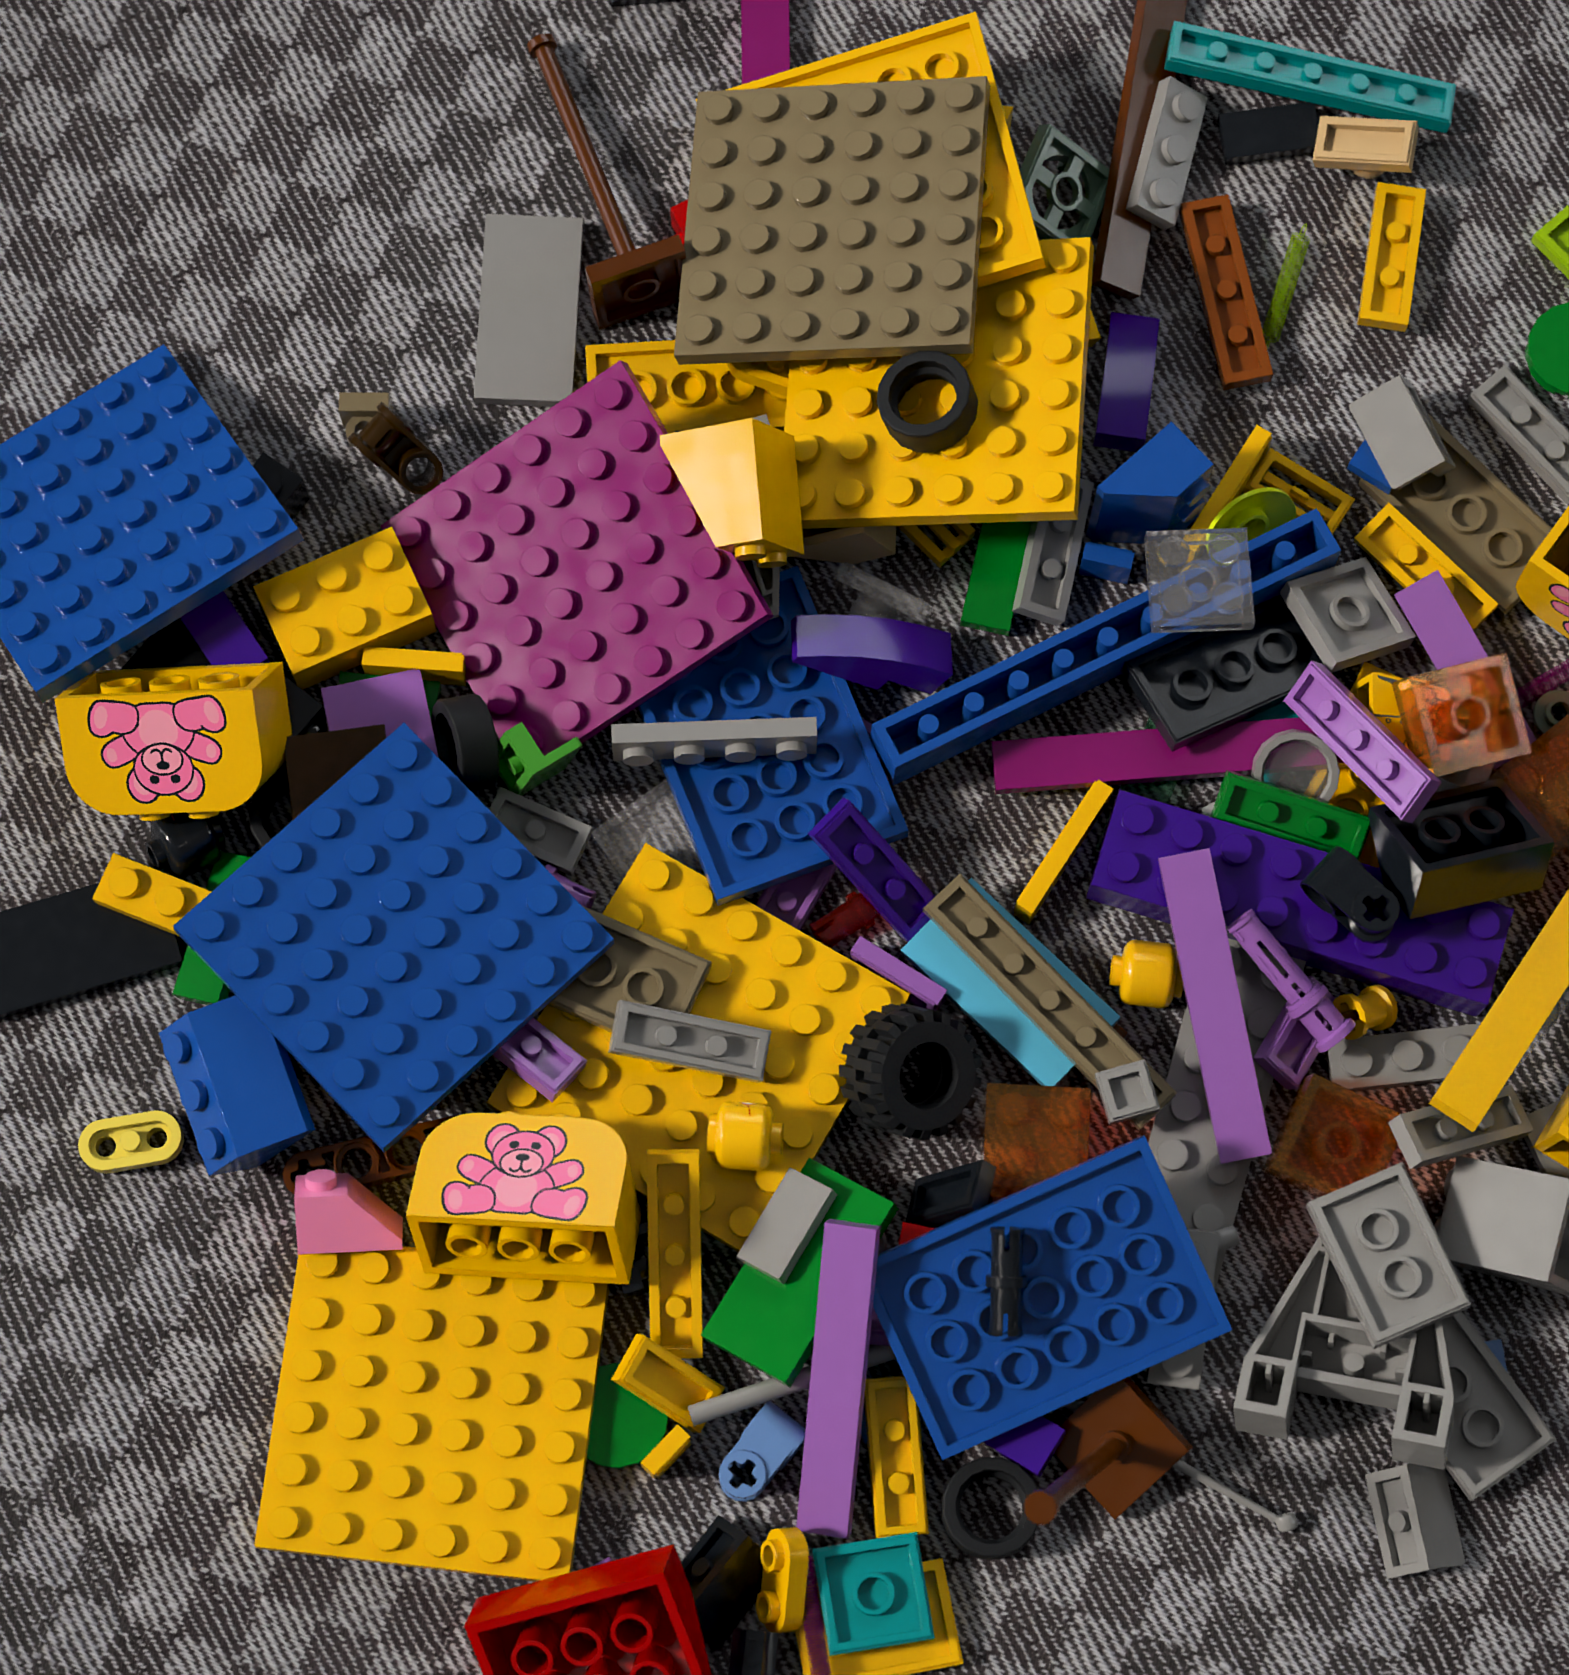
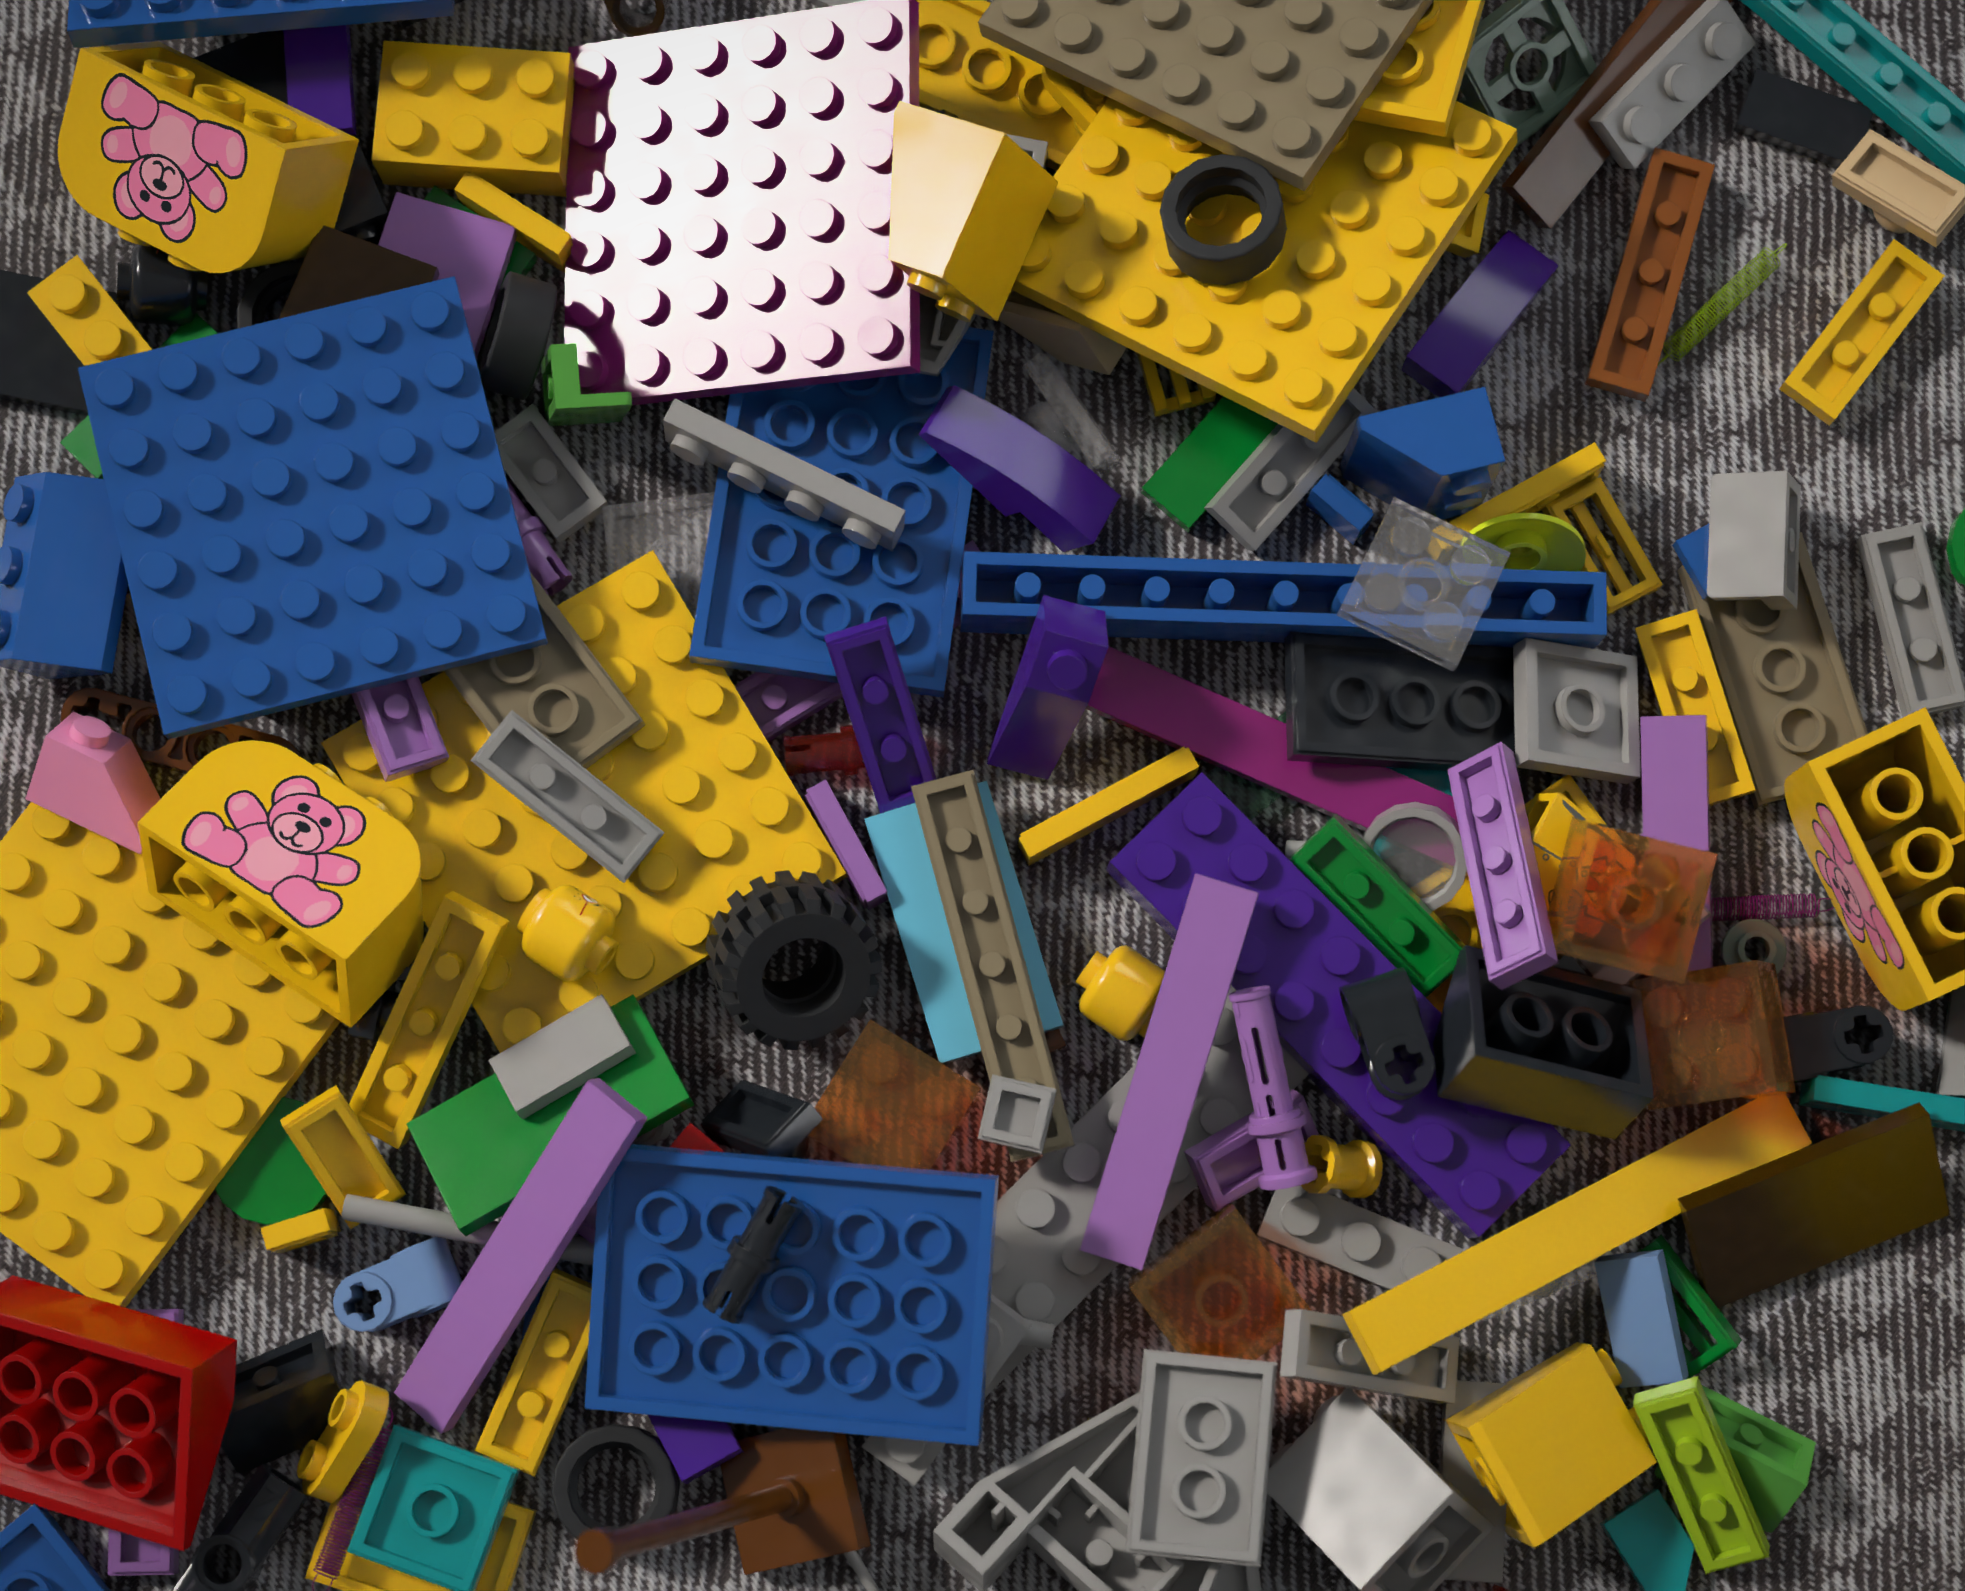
camera: 30 degrees right, 5 degrees up
(983, 787) = (1050, 687): none -> dark purple slope

